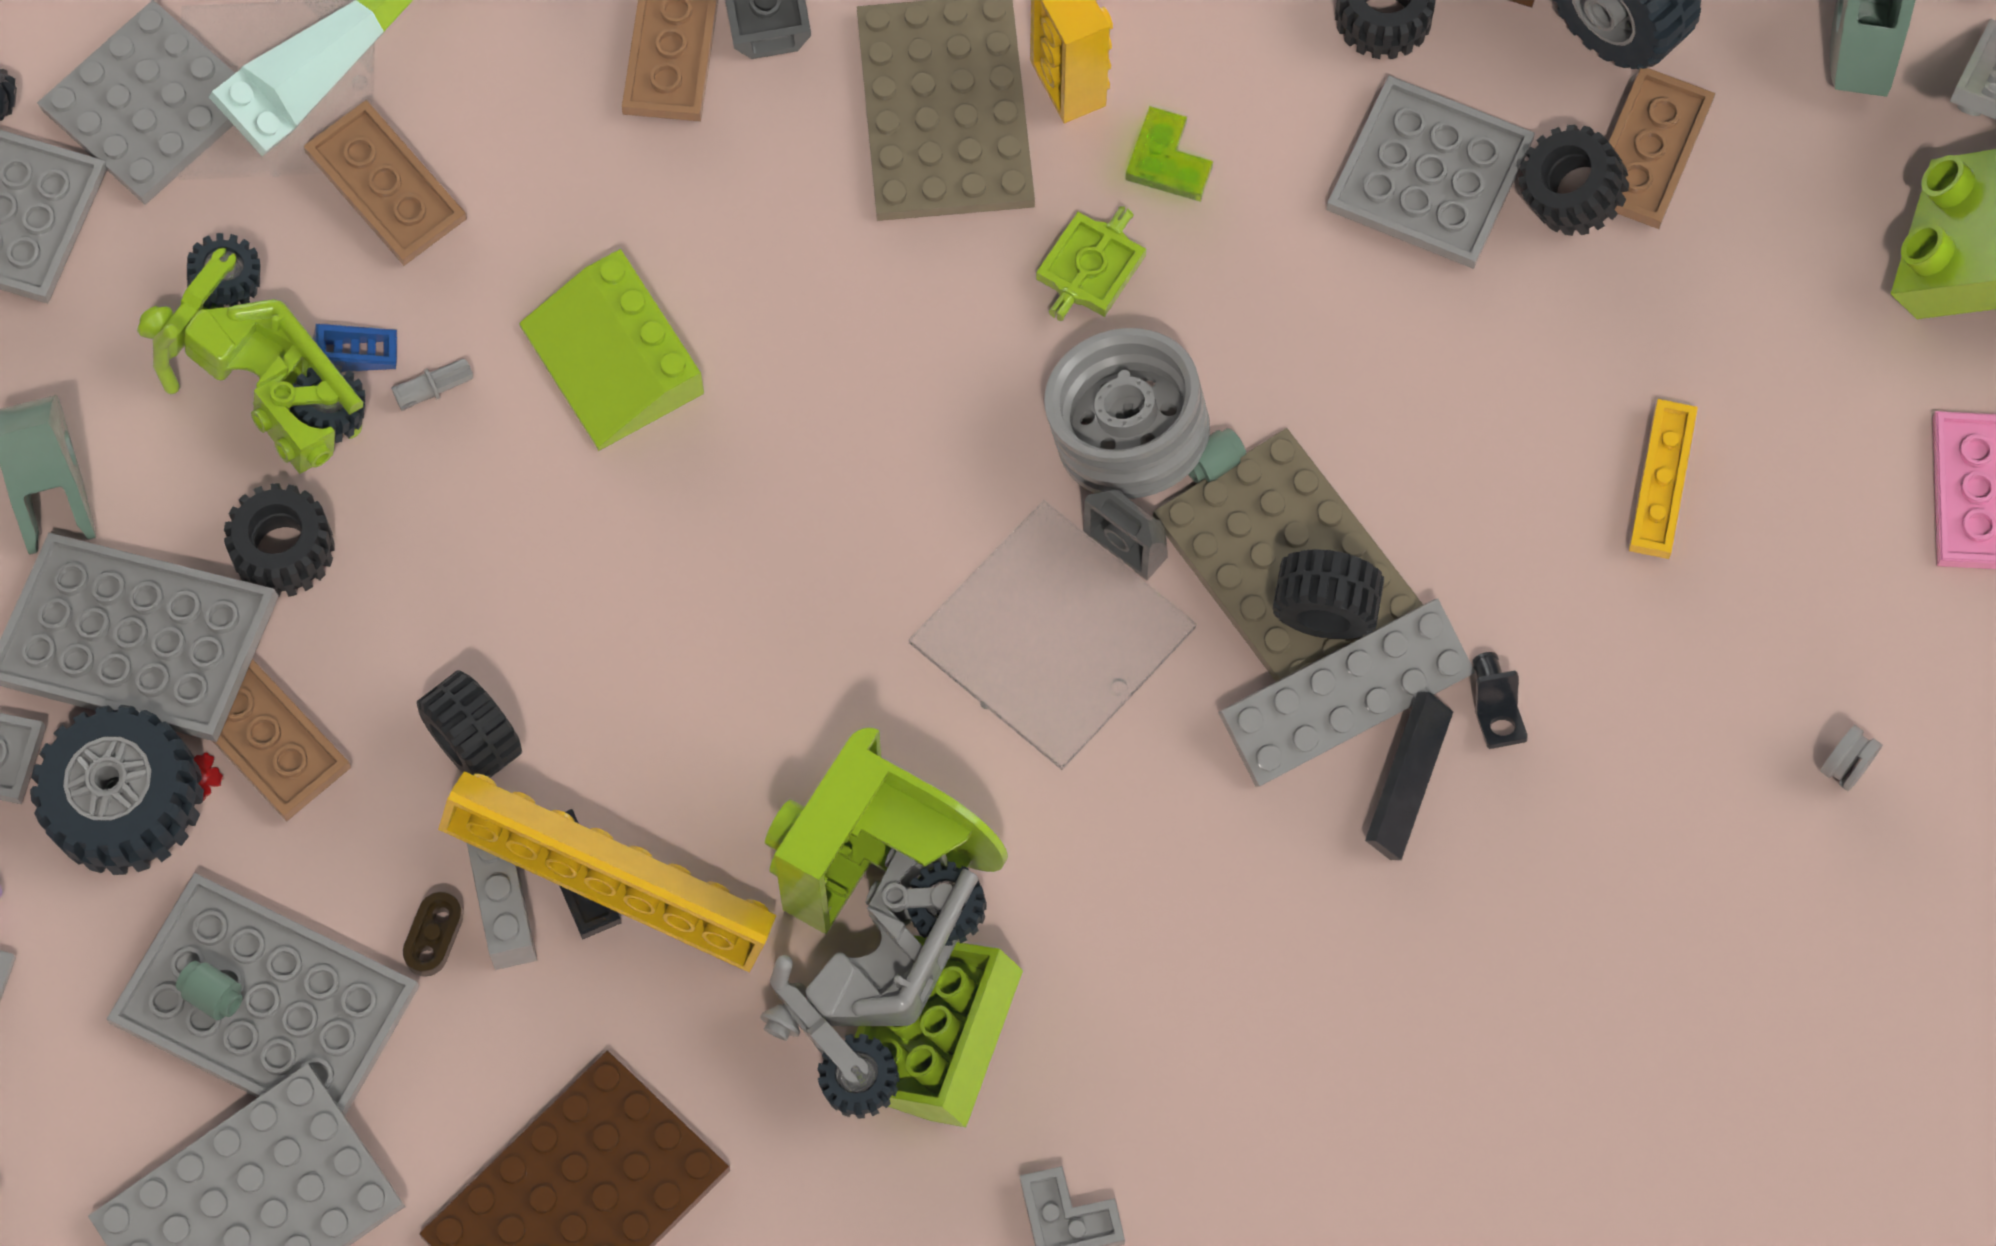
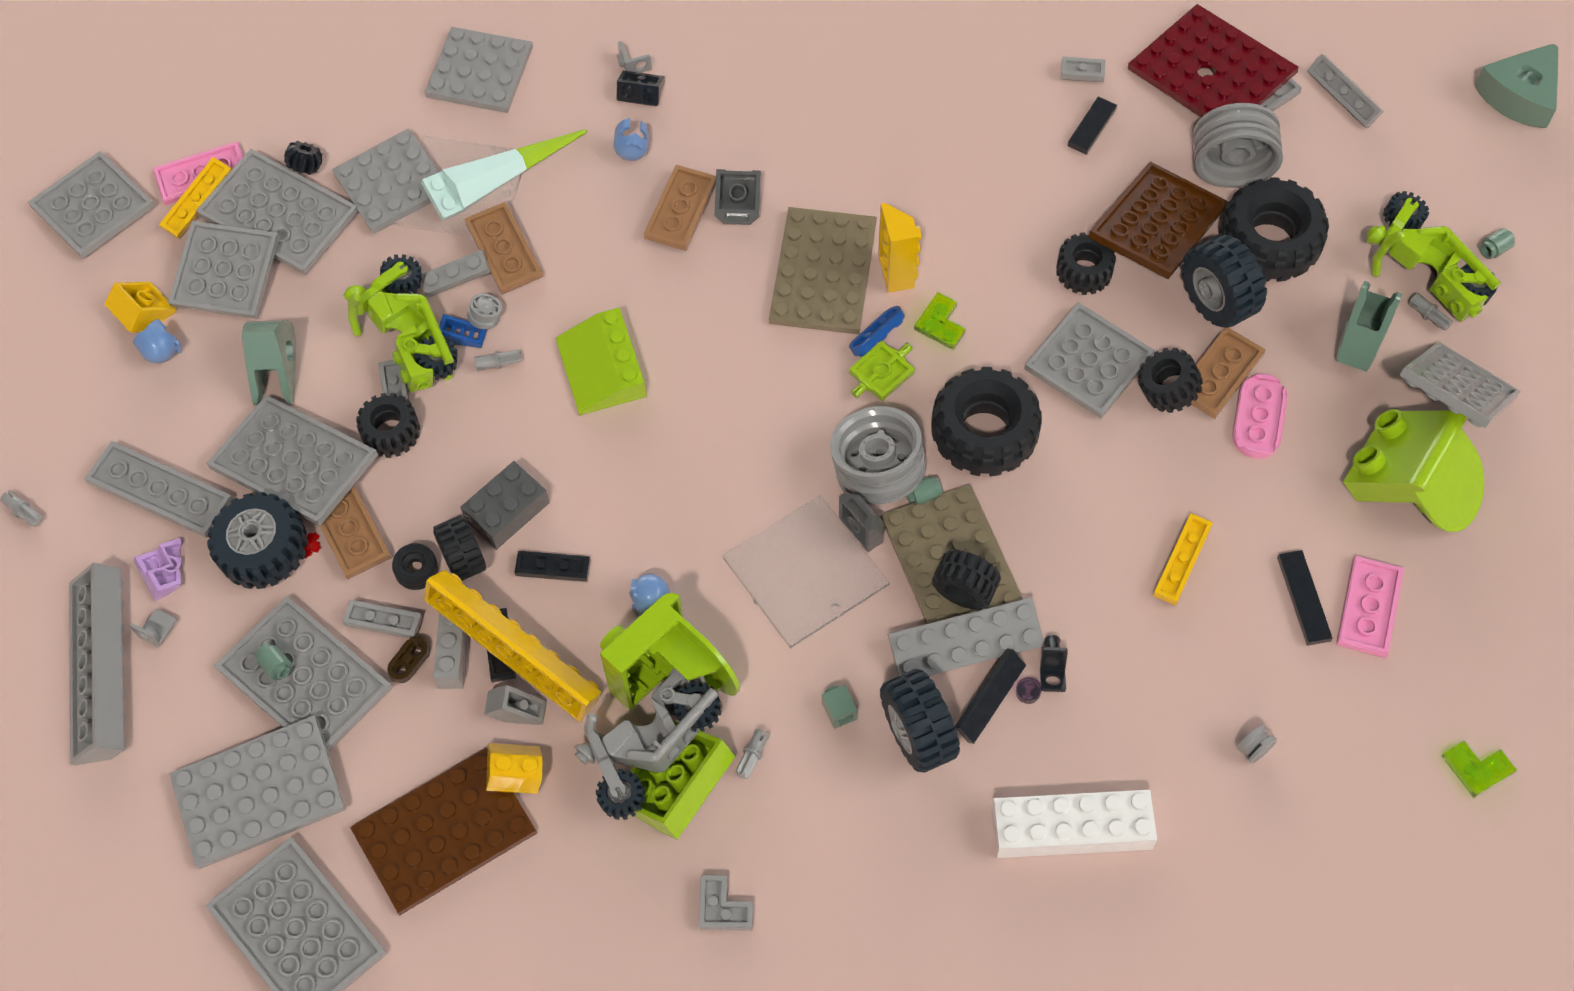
camera: 15 degrees right, 5 degrees down
(260, 458) = (391, 379): none -> light grey plate
(315, 246) = (455, 273): none -> light grey plate
(368, 876) = (382, 619): none -> light grey plate
(385, 303) = (484, 311): none -> light grey wheel
(403, 796) = (414, 553): none -> black tyre
(521, 633) = (505, 505): none -> dark grey brick
(628, 720) = (552, 566): none -> black tile
(635, 971) = (514, 706): none -> light grey slope
(666, 1073) = (514, 768): none -> yellow slope
(808, 733) = (647, 591): none -> medium blue helmet
(1048, 959) = (752, 753): none -> light grey axle
(1065, 196) = (877, 331): none -> blue plate
(1169, 848) = (839, 706): none -> sand green brick
(1297, 267) = (993, 394): none -> black tyre
(1312, 844) = (920, 720): none -> black wheel
(1466, 752) = (1028, 690): none -> clear purple tile
(1593, 953) = (1074, 823): none -> white brick
(1730, 208) = (1260, 416): none -> bright pink tile
(1870, 499) = (1304, 598): none -> black tile

